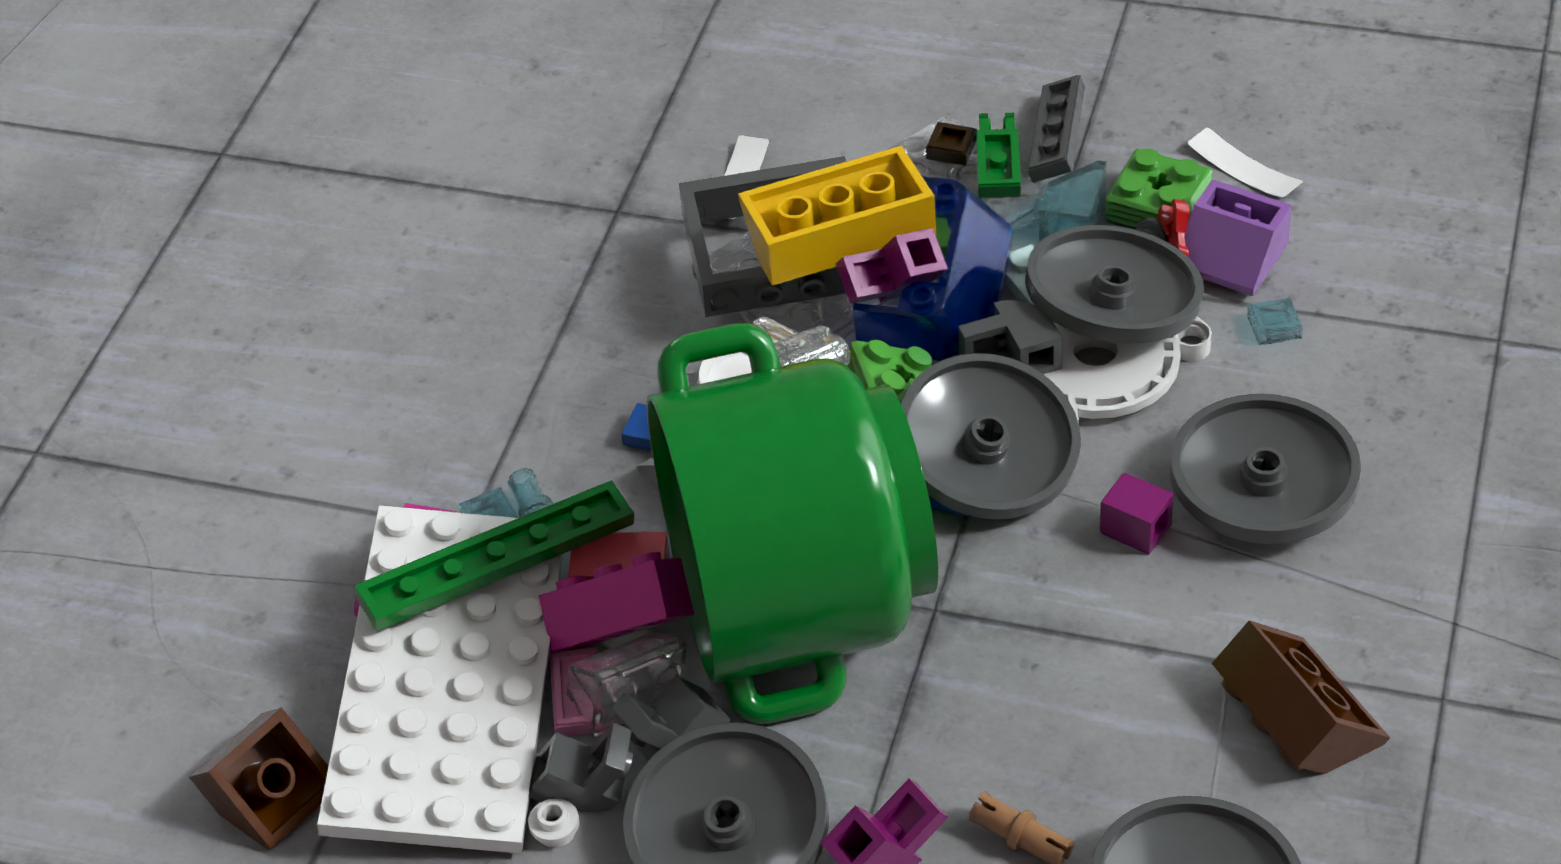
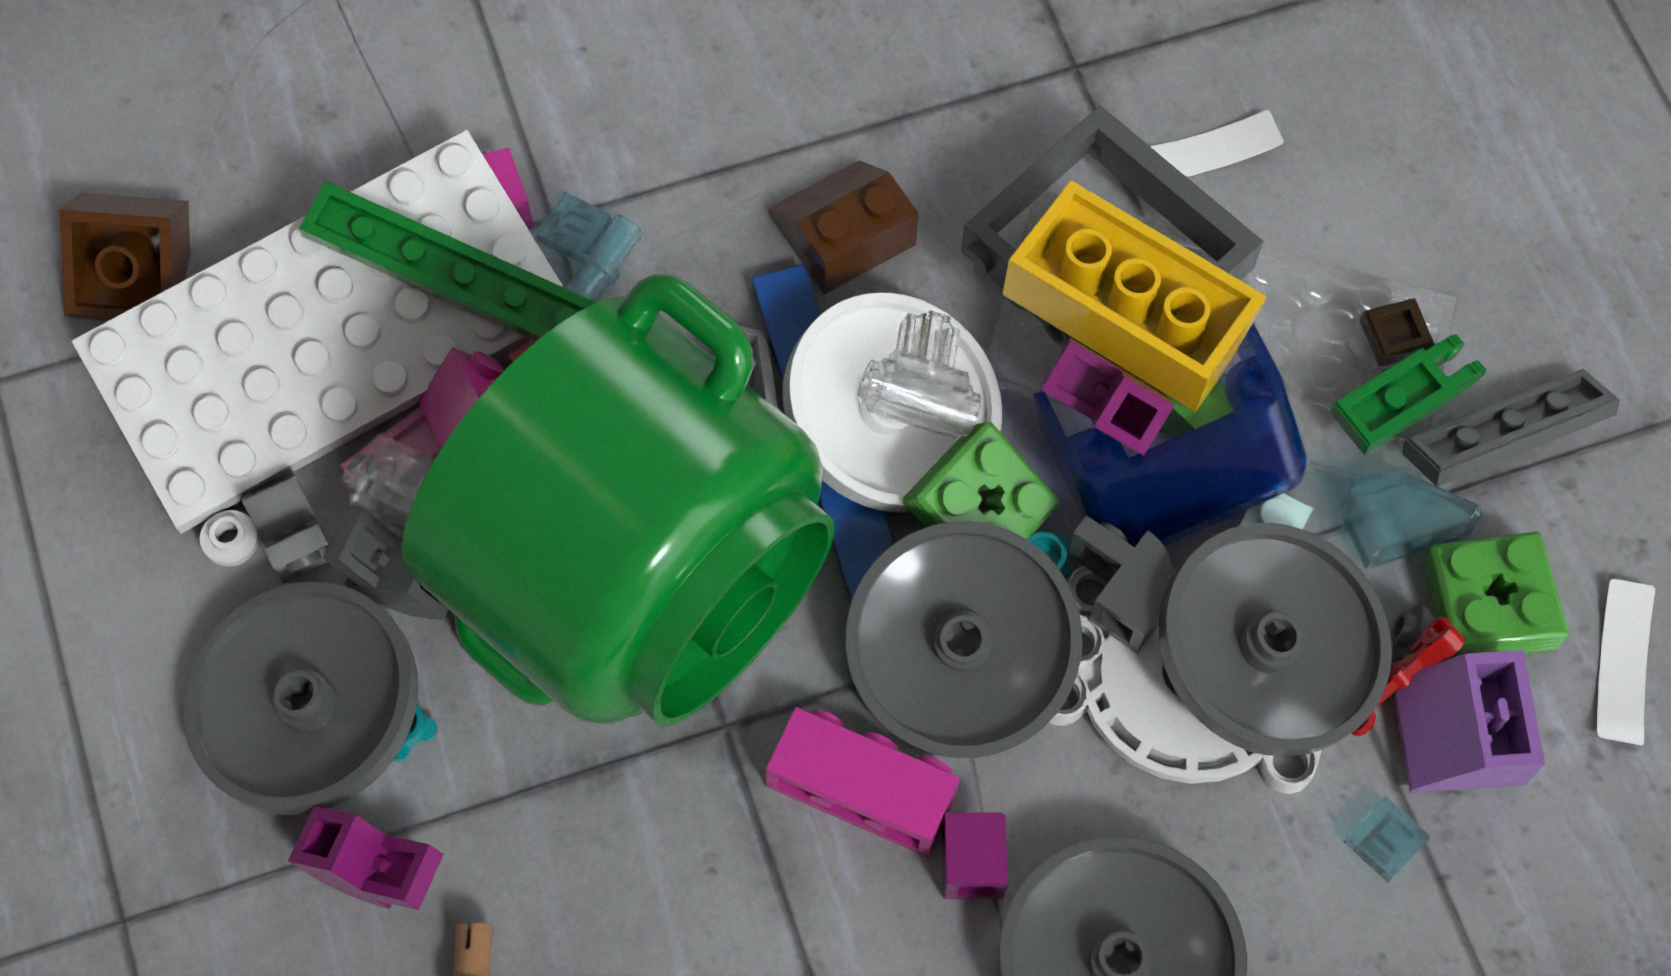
camera: 50 degrees right, 20 degrees up
(622, 363) = (847, 223): none -> reddish brown slope
(1039, 545) = (862, 780): none -> dark pink brick

